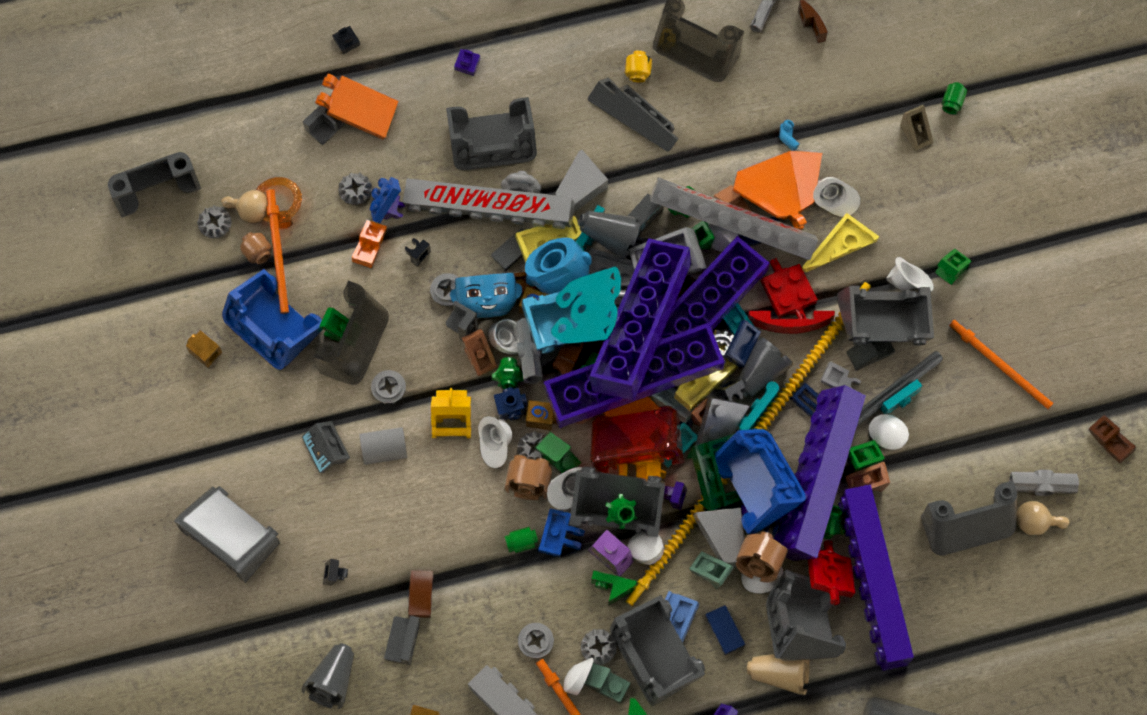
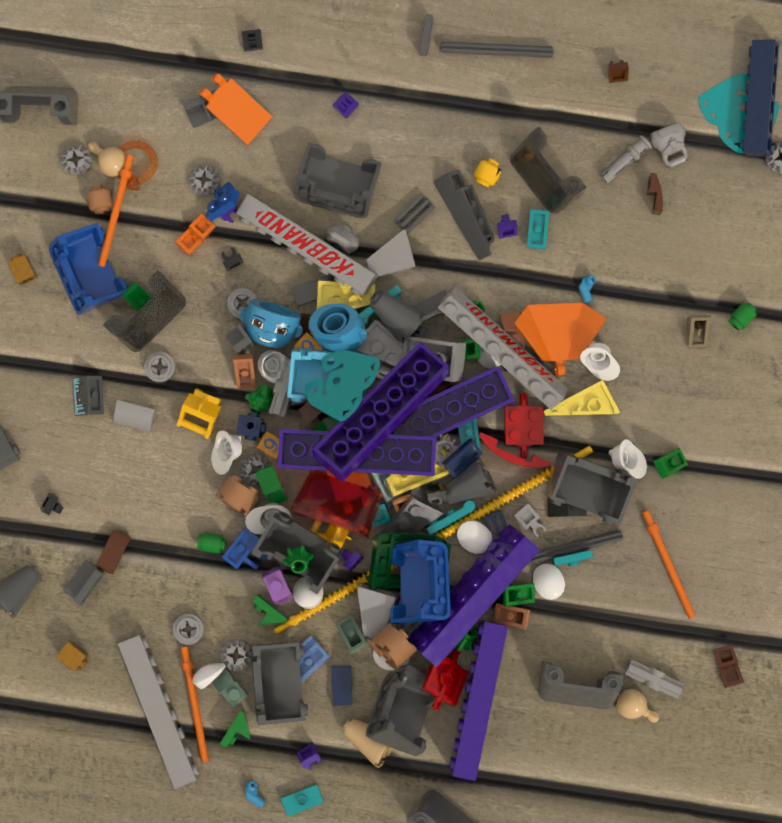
camera: 25 degrees right, 15 degrees up
(589, 120) = (409, 208): none -> dark grey tile
(682, 109) = (506, 227): none -> dark purple tile
(713, 100) = (537, 229): none -> teal plate
(791, 418) = (474, 536): none -> white hat

